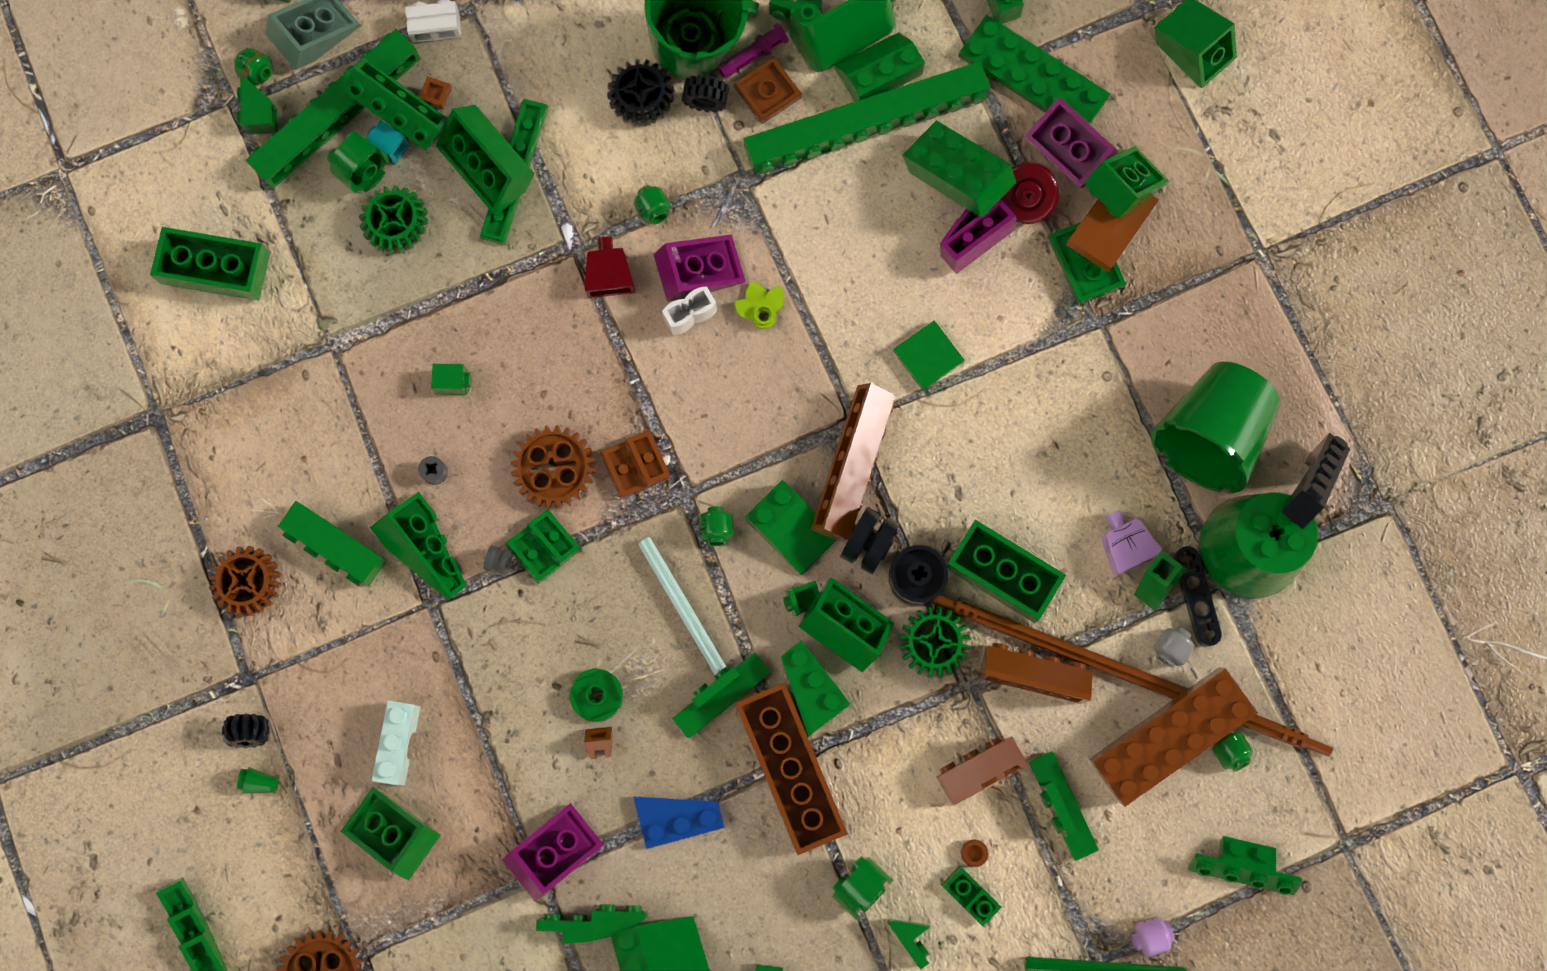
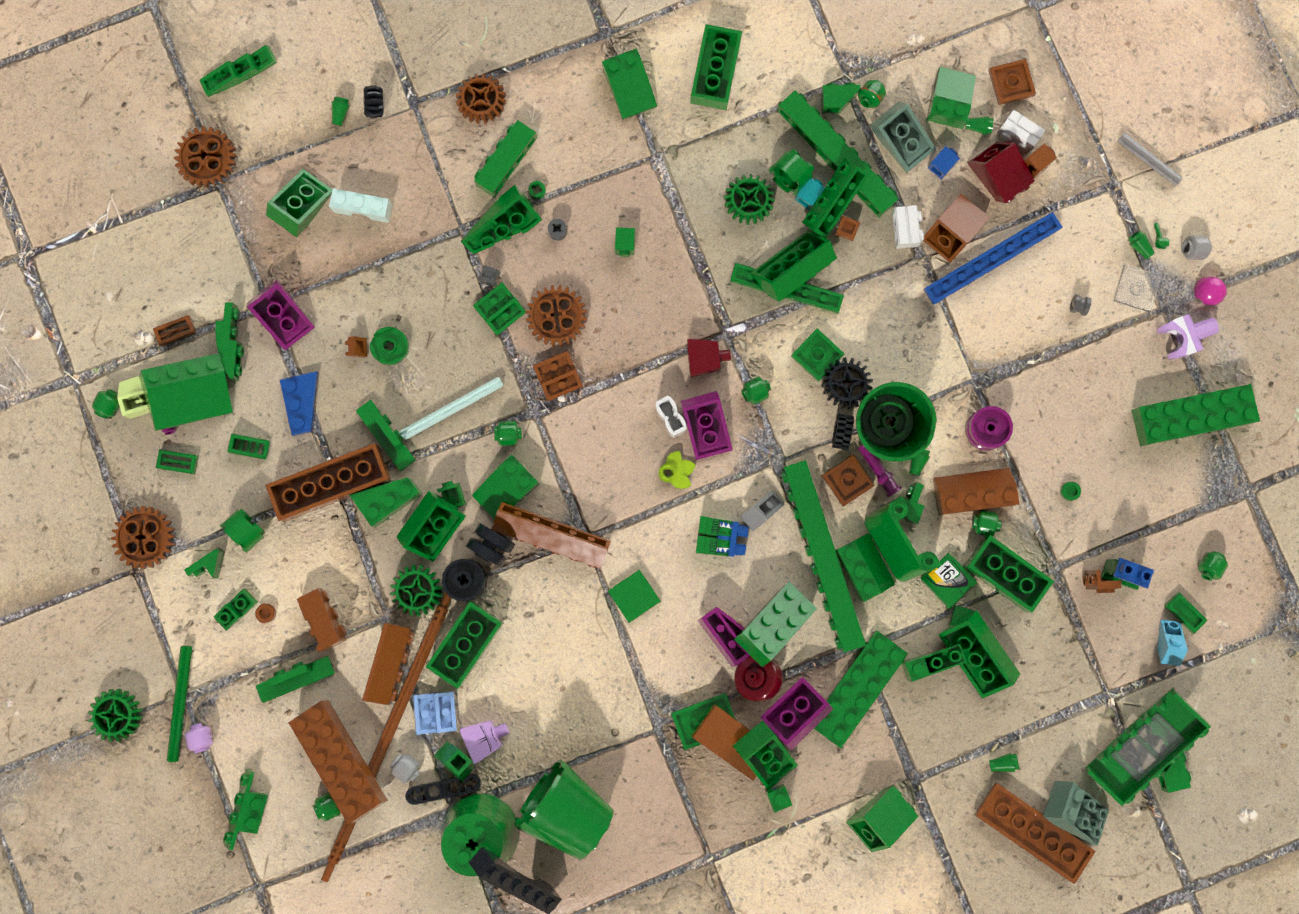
camera: 90 degrees right, 5 degrees up
(229, 380) = (629, 83): none -> green slope
(374, 494) = (542, 187): none -> green bush
(602, 130) = (816, 354): none -> green plate
(736, 913) = (231, 448): none -> green slope
(811, 194) = (762, 510): none -> light grey slope
(850, 238) = (726, 537): none -> hips
(1097, 612) = (434, 713): none -> light blue slope
(1179, 166) = (778, 798): none -> green brick

